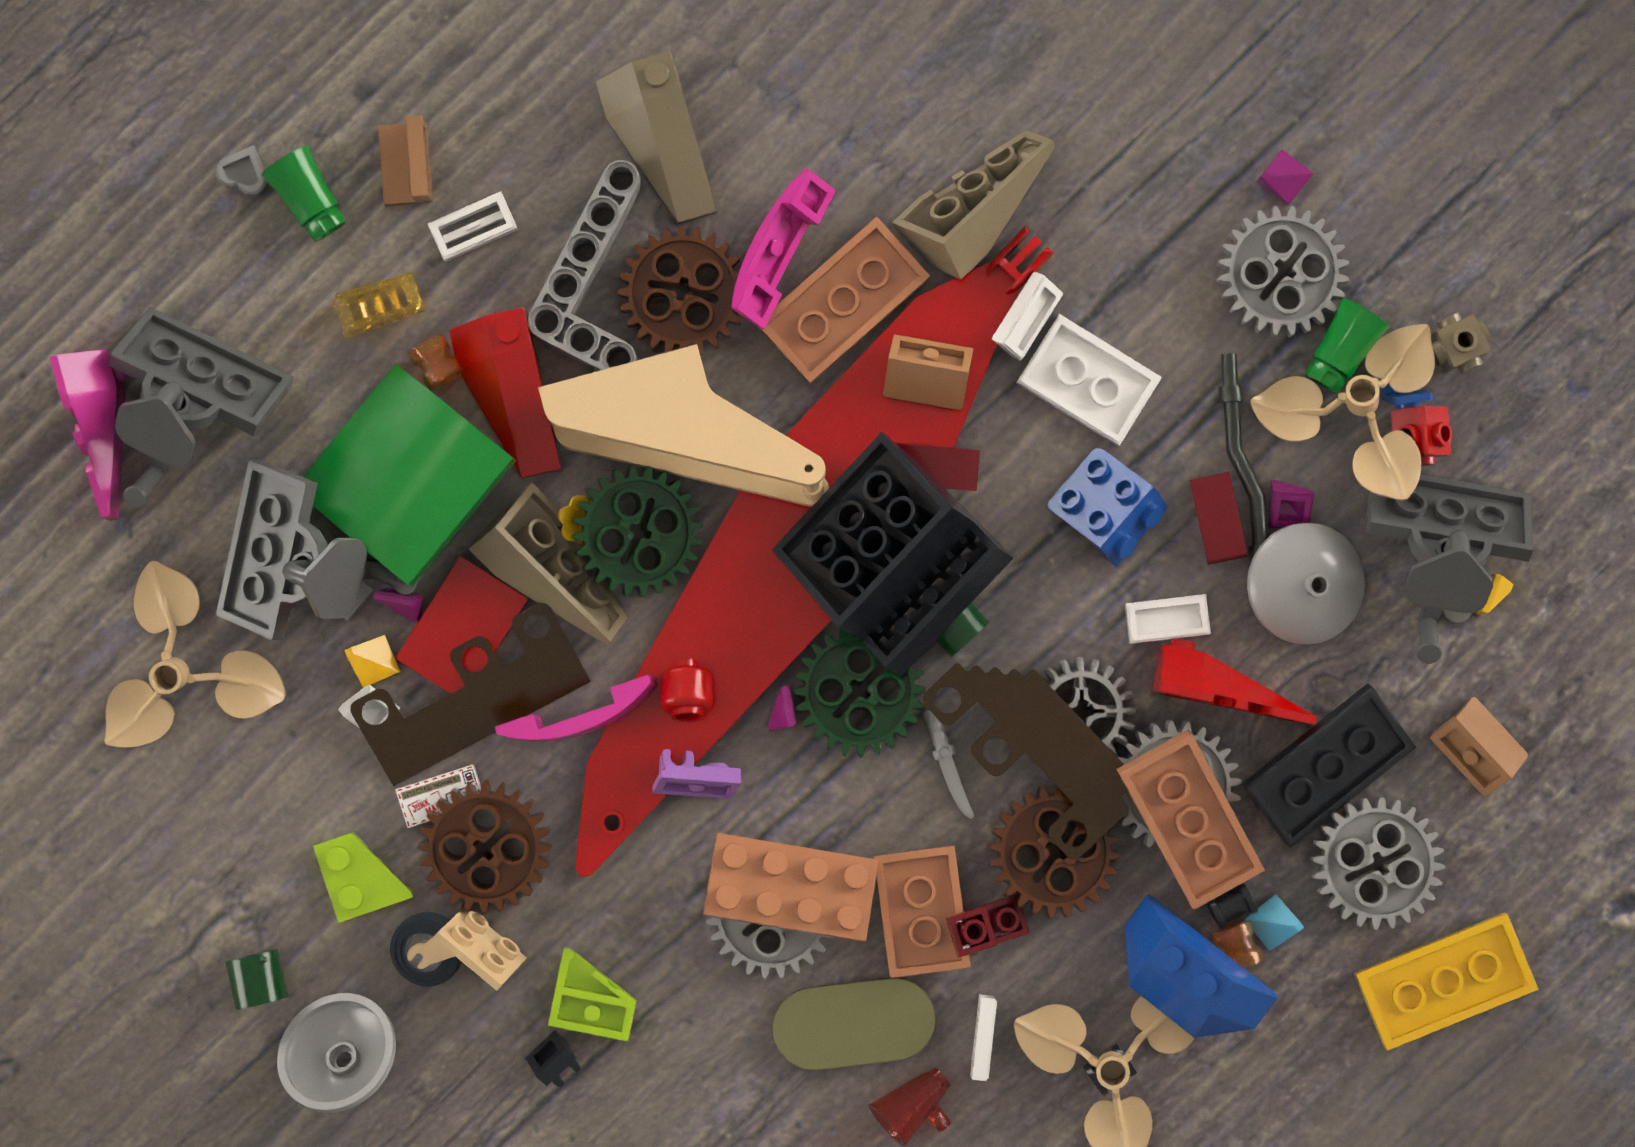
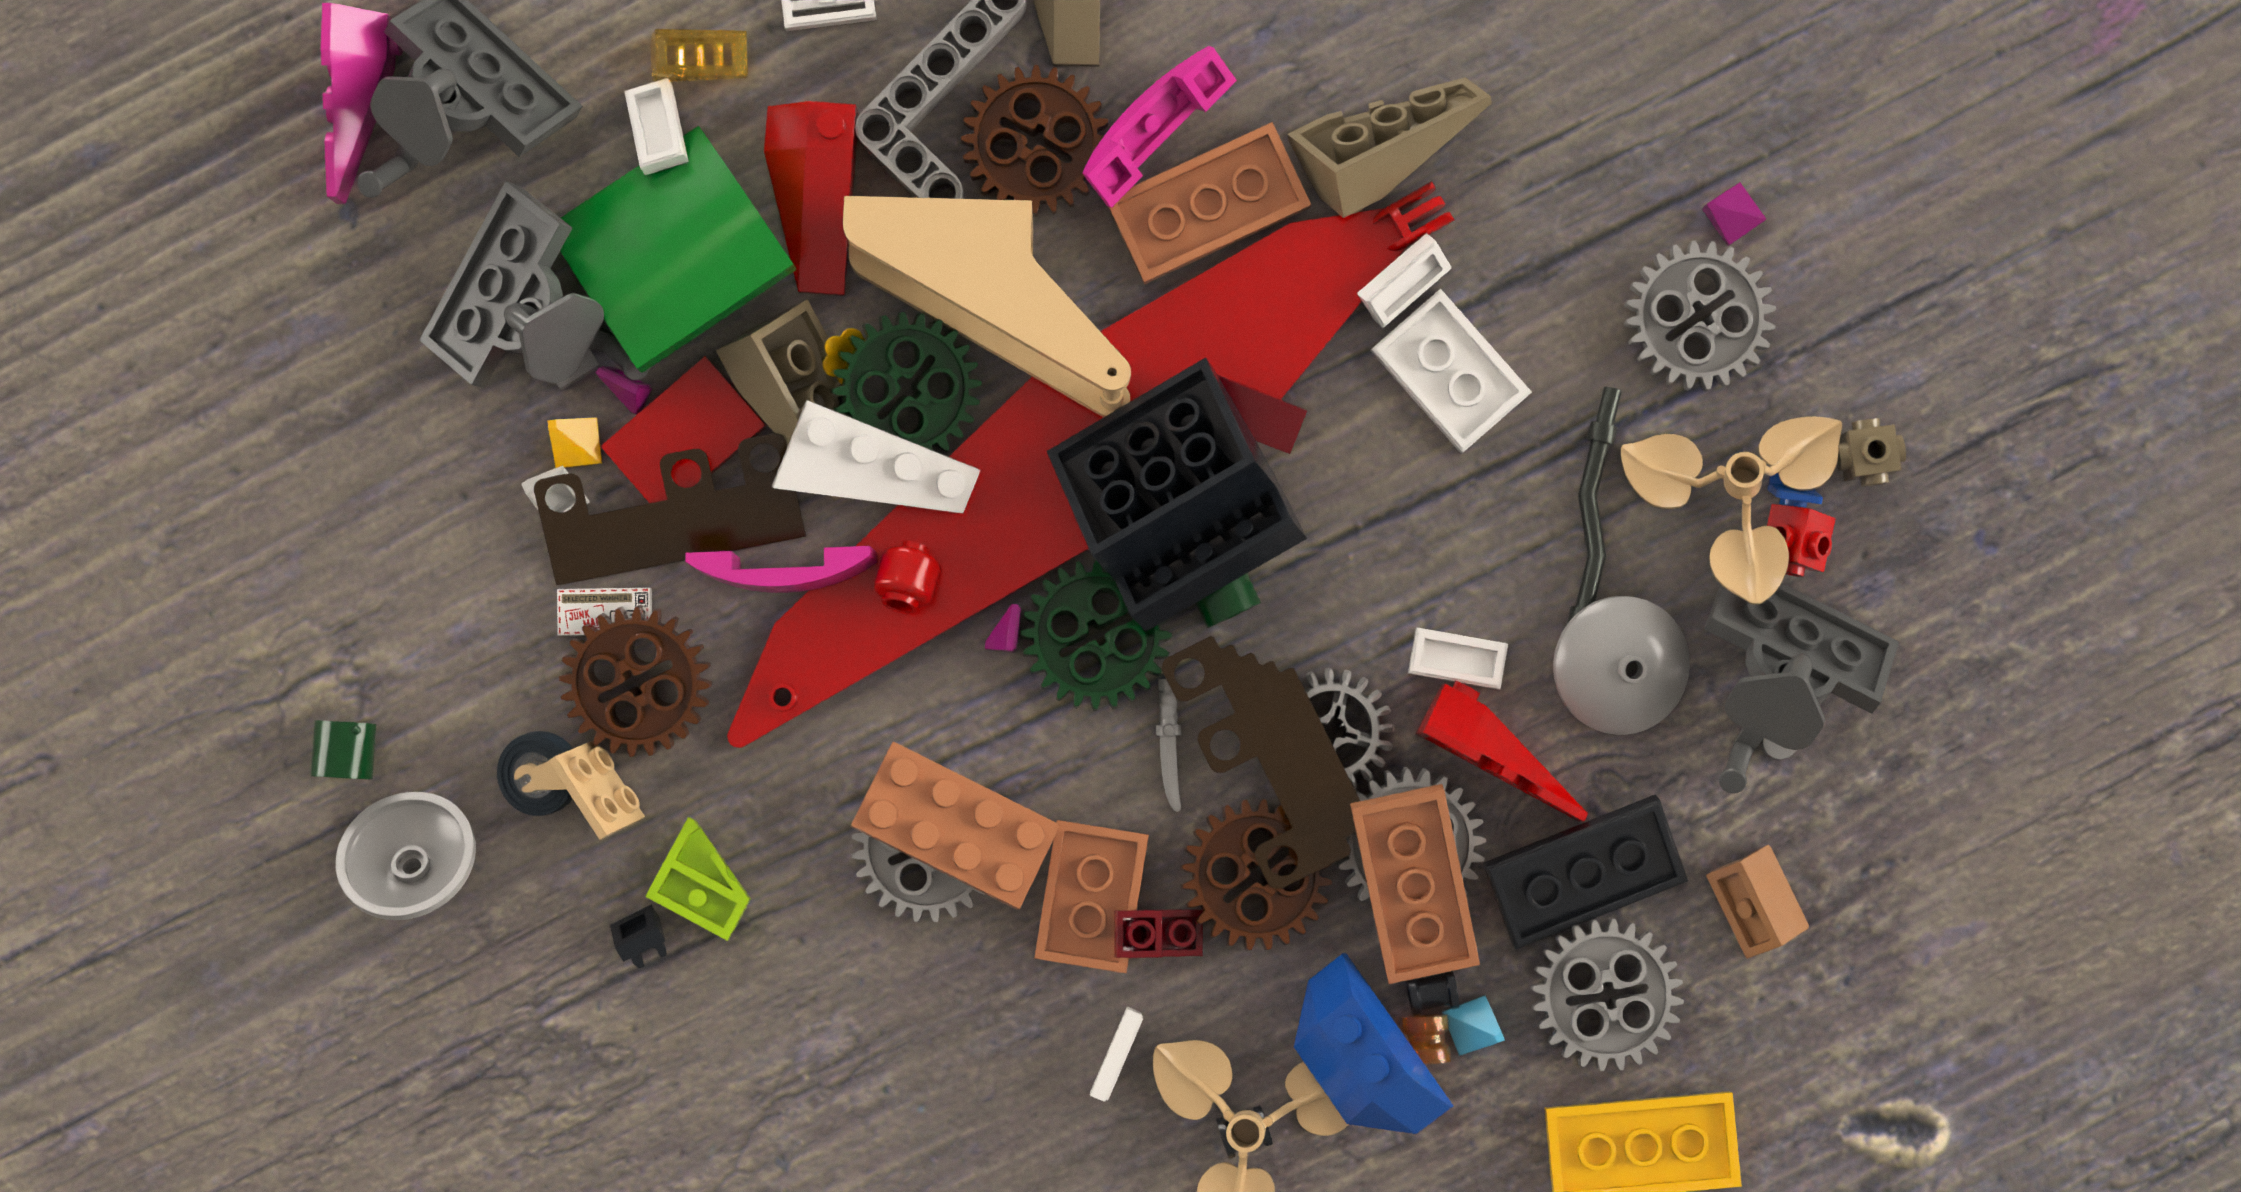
camera: 15 degrees right, 0 degrees up
(134, 707) = (301, 414): tan plant -> none
(357, 878) = (486, 673): lime wing -> none
(360, 375) = (656, 126): none -> white tile
(435, 362) = (742, 137): clear orange wheel -> none
(617, 606) = (861, 462): none -> white wing
(711, 780) = (898, 682): medium lavender plate -> none
(853, 1023) = (980, 996): olive tile -> none
(909, 1105) = (1013, 1103): clear red piece -> none
(927, 372) = (1276, 308): medium nougat panel -> none
(1108, 505) = (1430, 514): bracket -> none
(1218, 518) = (1547, 564): dark red slope -> none
(1289, 504) = (1629, 573): magenta slope -> none
(1345, 345) = (1743, 416): green plant -> none
(1500, 590) = (1830, 736): yellow slope -> none

